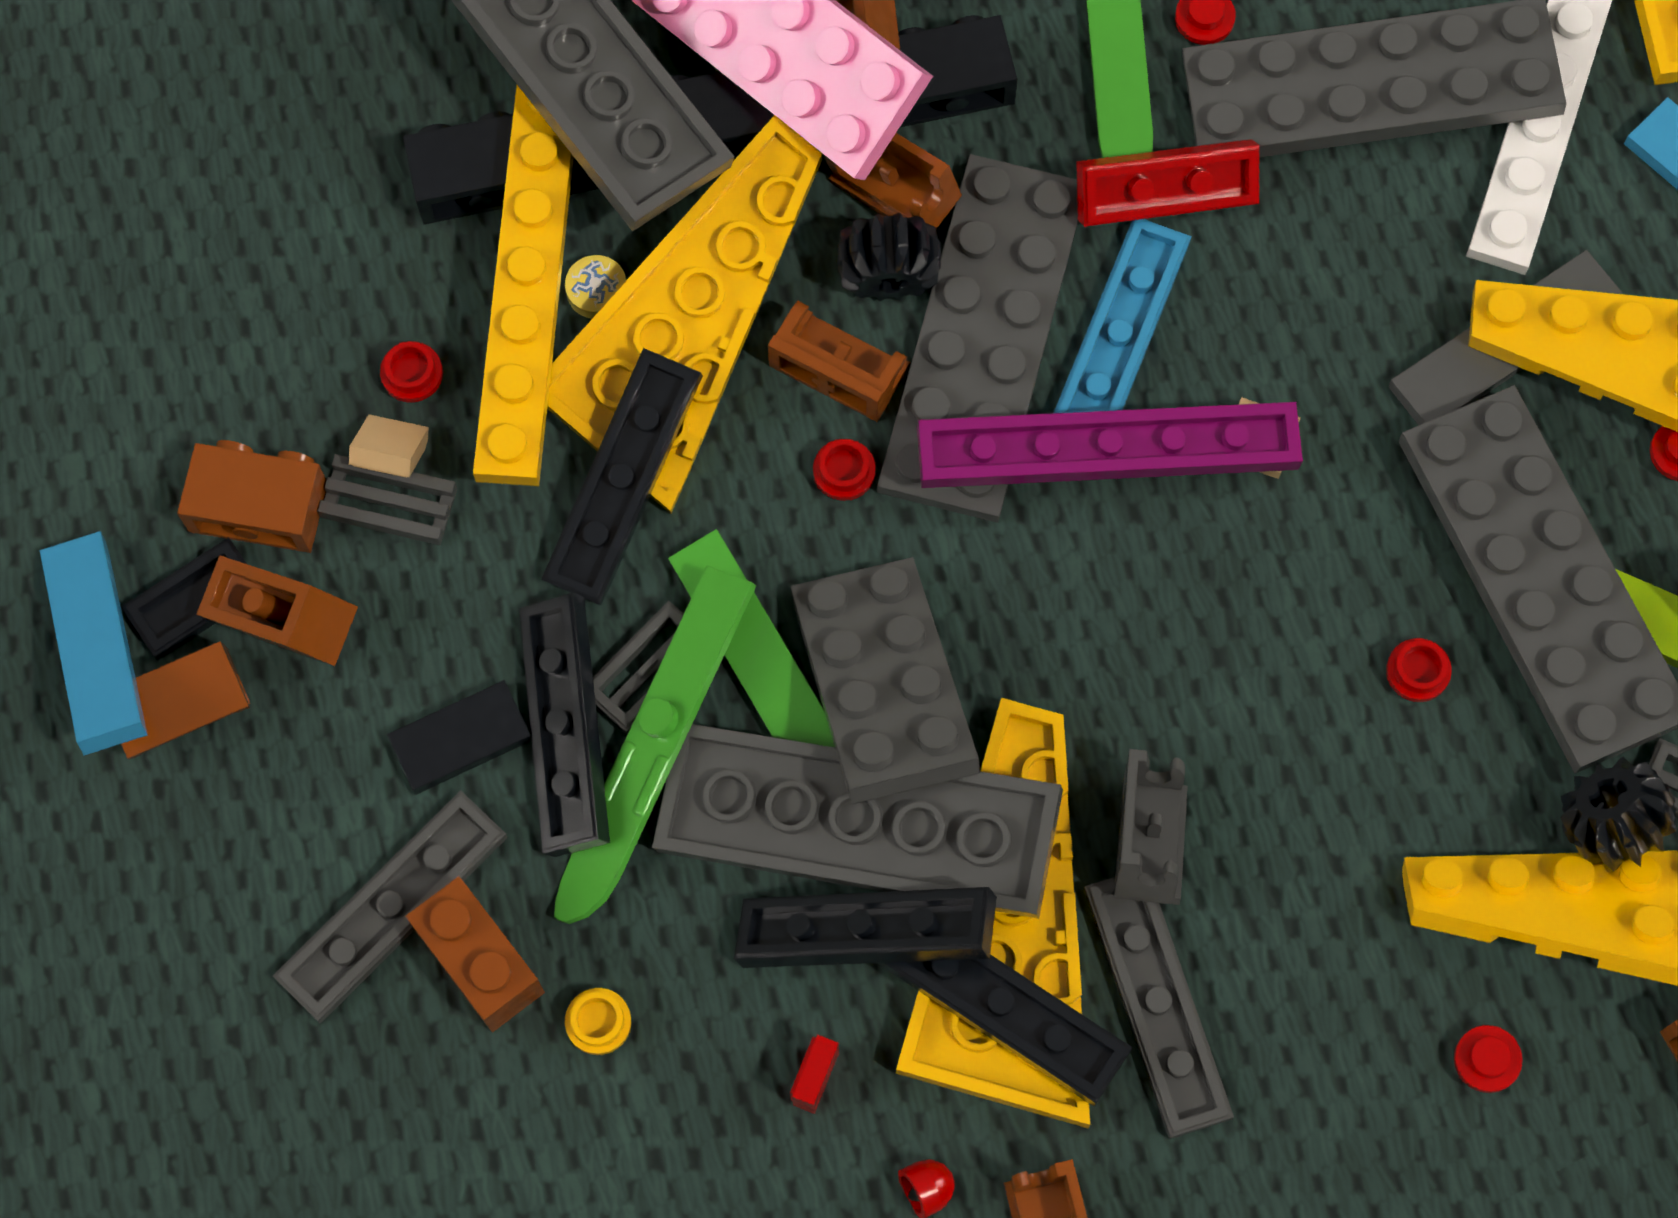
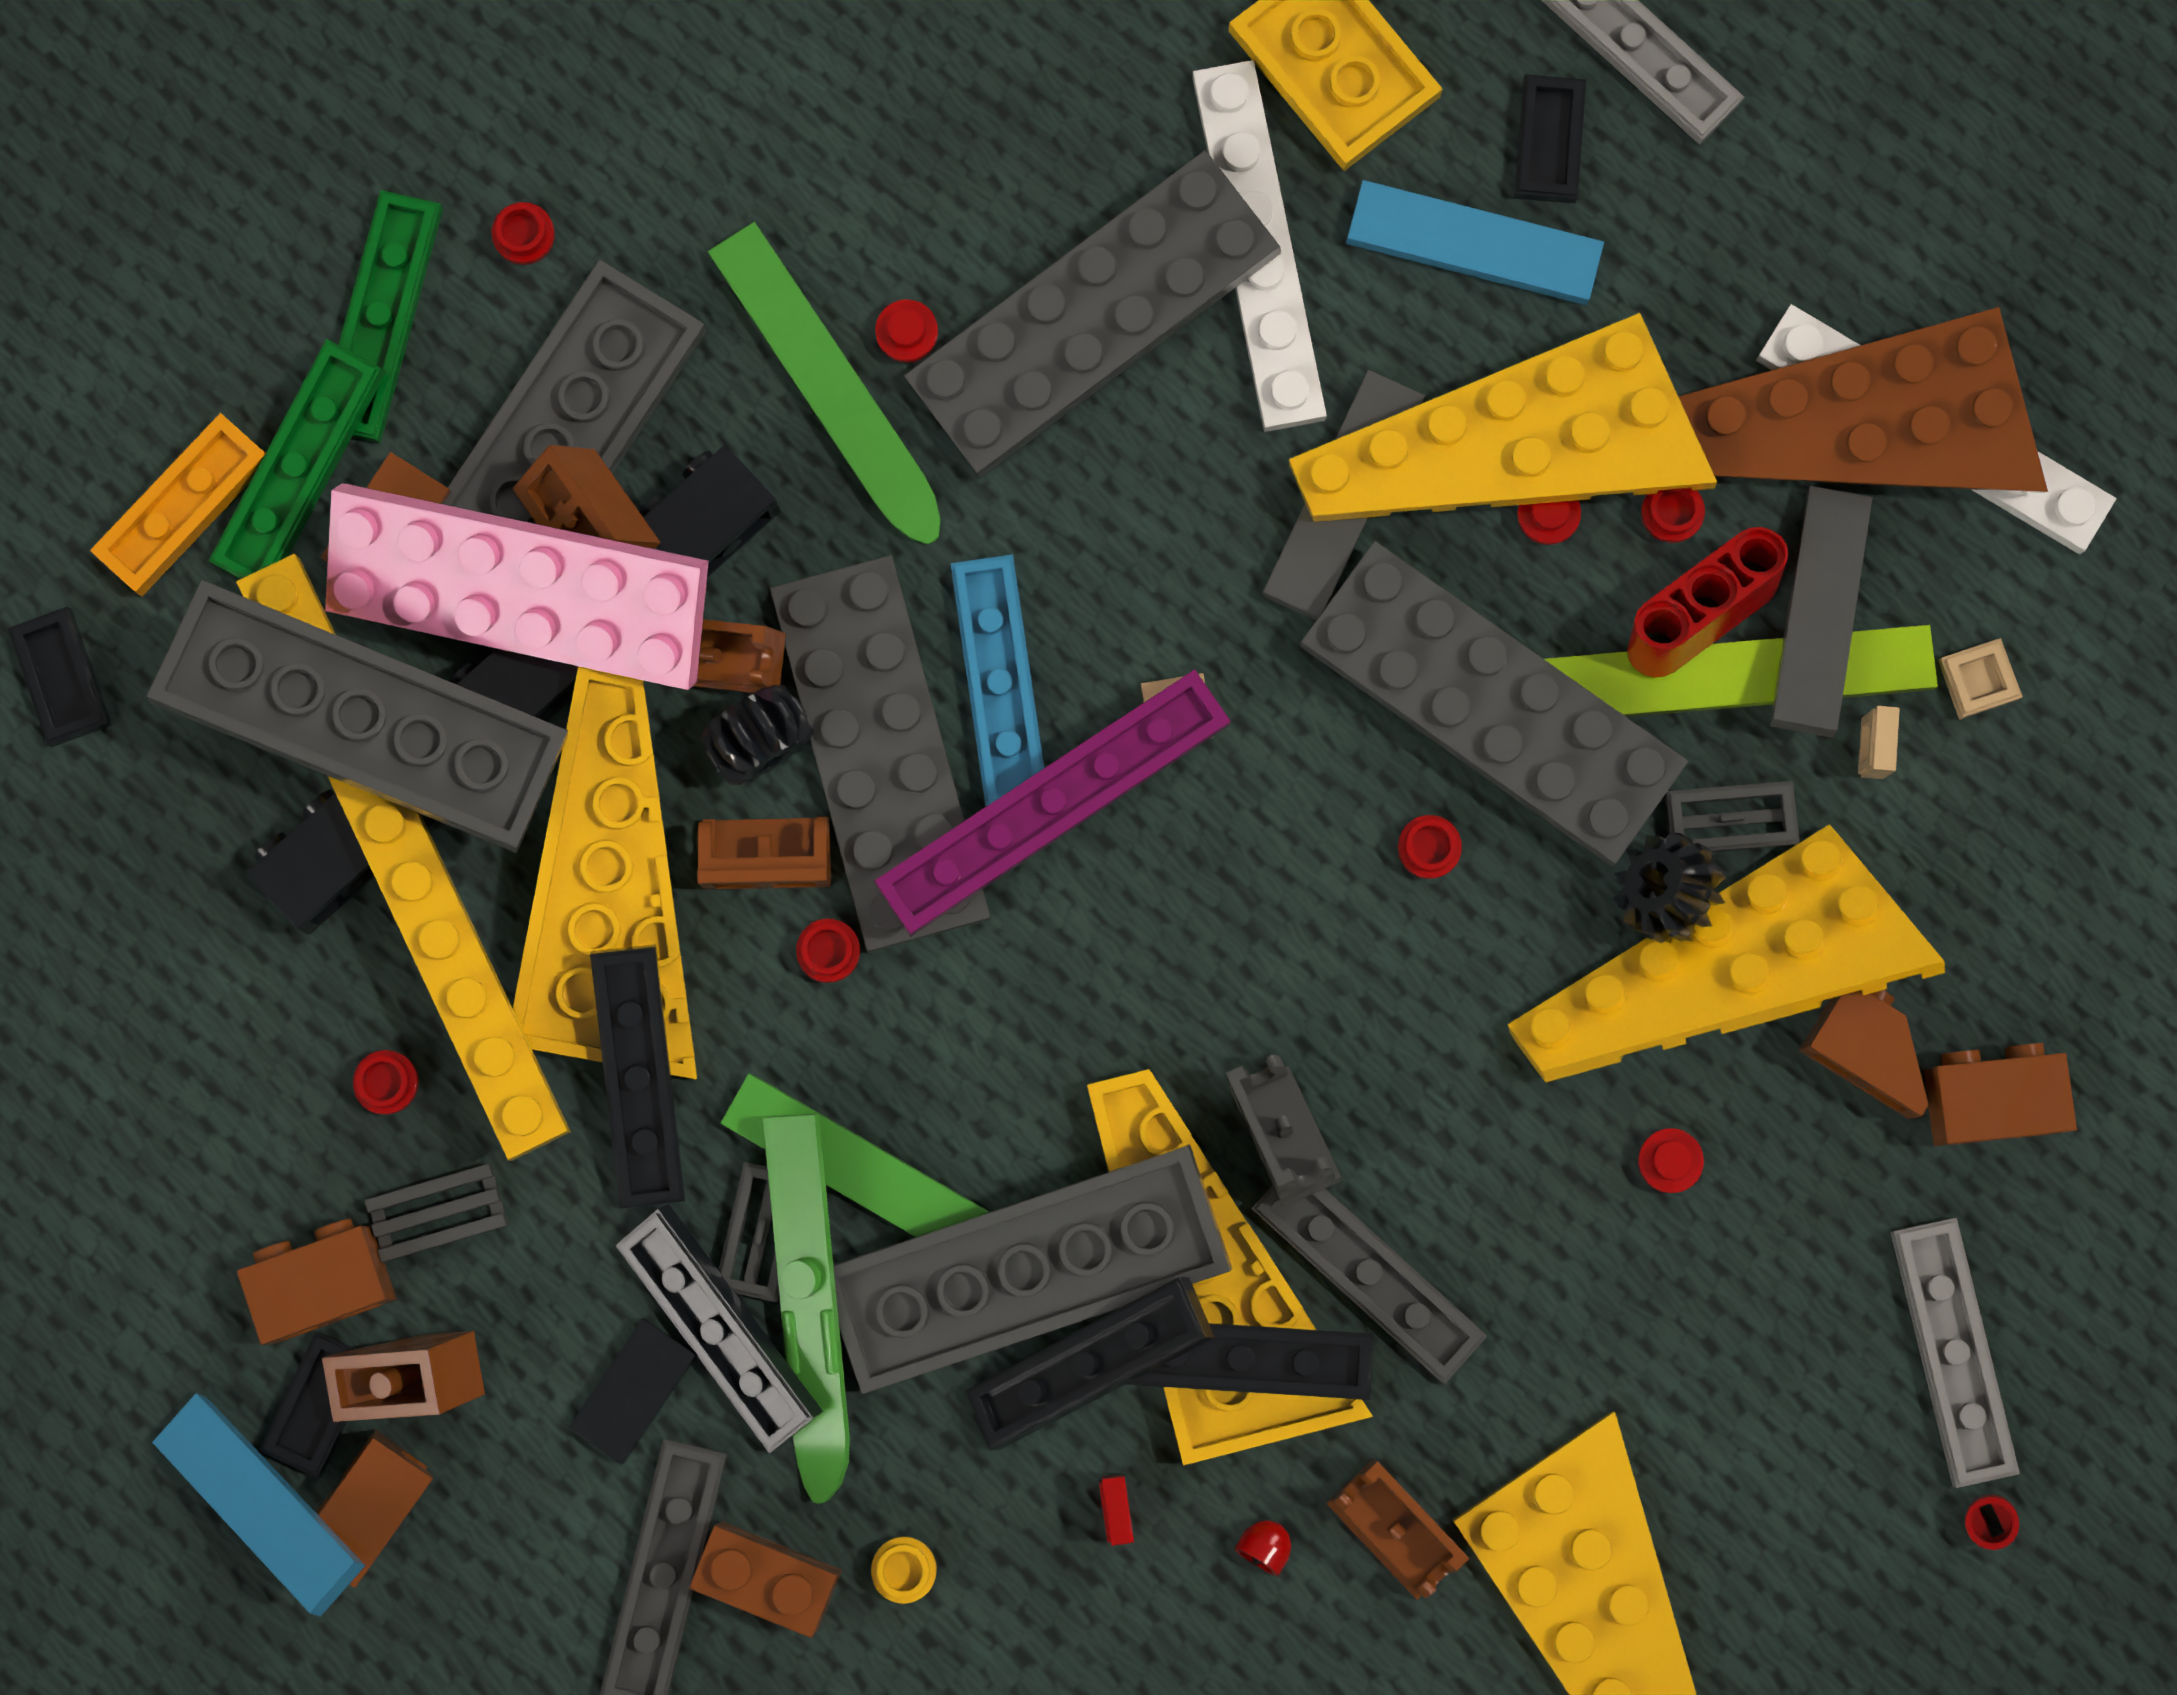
camera: 30 degrees left, 10 degrees up
(388, 446) = (408, 1165): tan tile -> none
(592, 283) = (503, 905): light yellow tile -> none
(884, 680) = (977, 1131): dark grey plate -> none
(1167, 182) = (965, 518): red tile -> none

